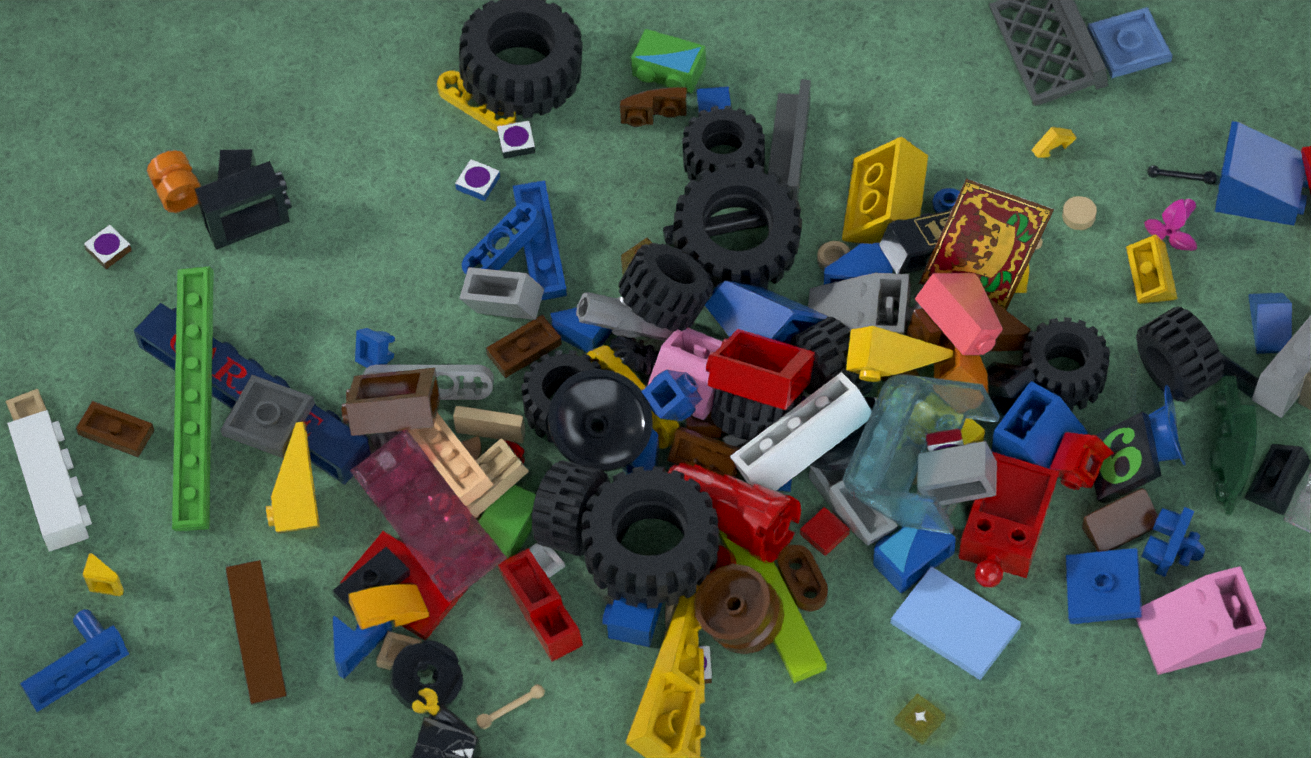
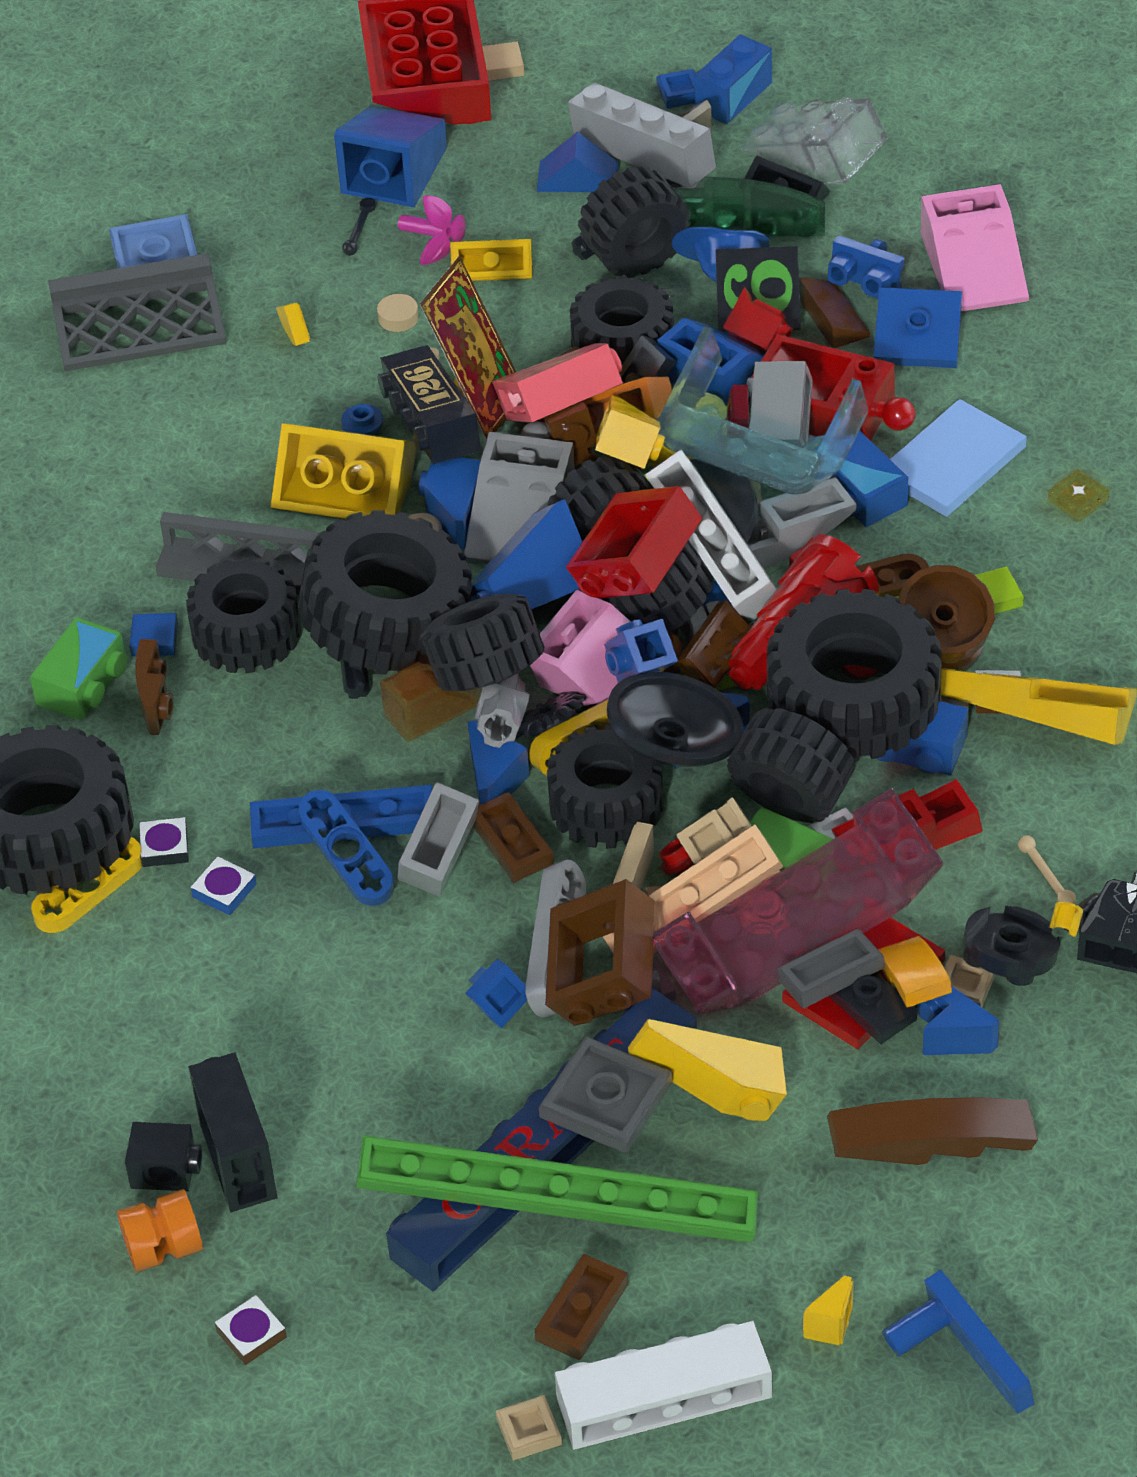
camera: 85 degrees left, 10 degrees down
(387, 551) = (830, 968): none -> dark grey tile

